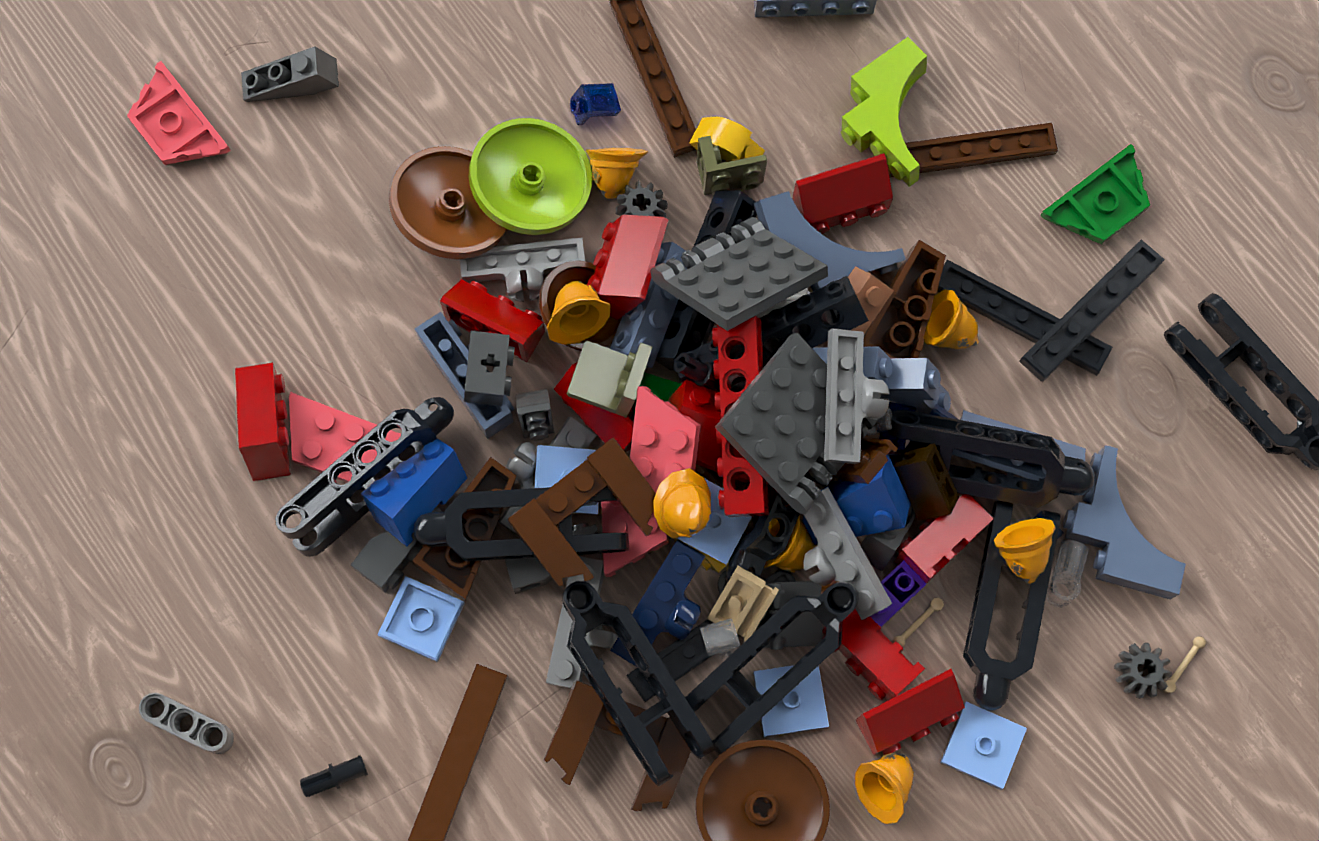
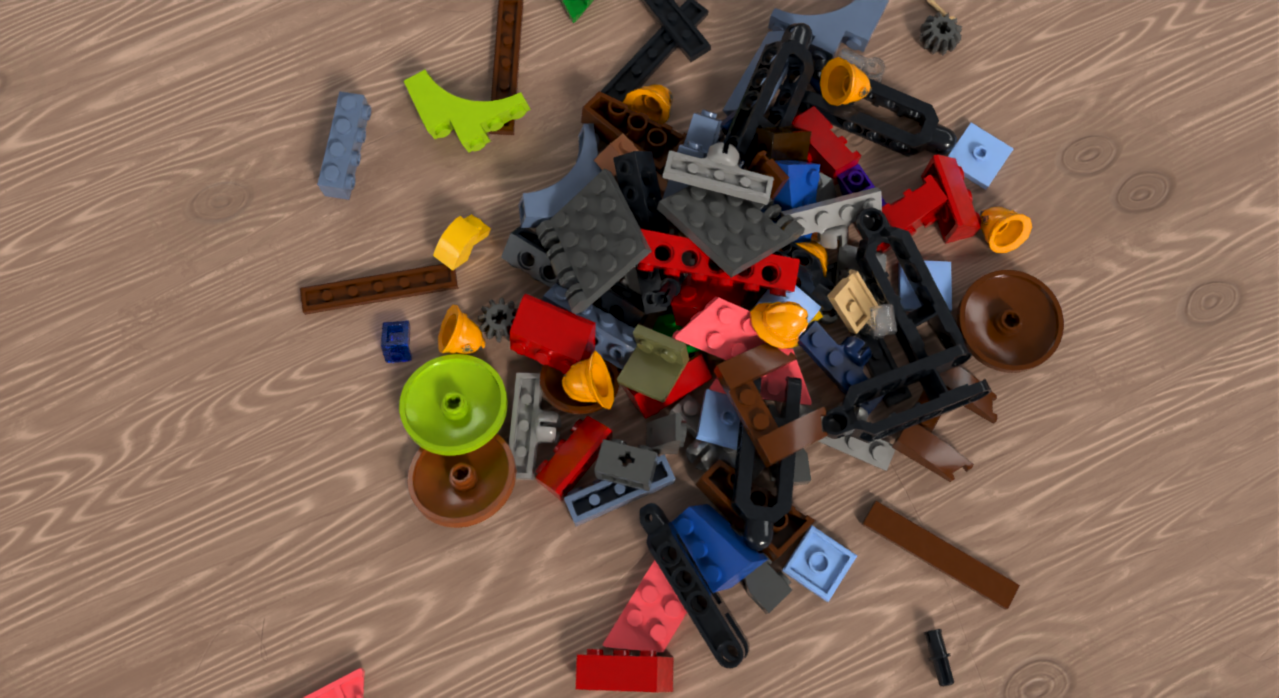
camera: 80 degrees left, 0 degrees up
(291, 76) = (306, 601): dark grey slope -> none
(719, 176) = (482, 256): olive bracket -> none
(845, 194) = (528, 154): red slope -> none
(935, 605) = (866, 166): tan hinge -> none

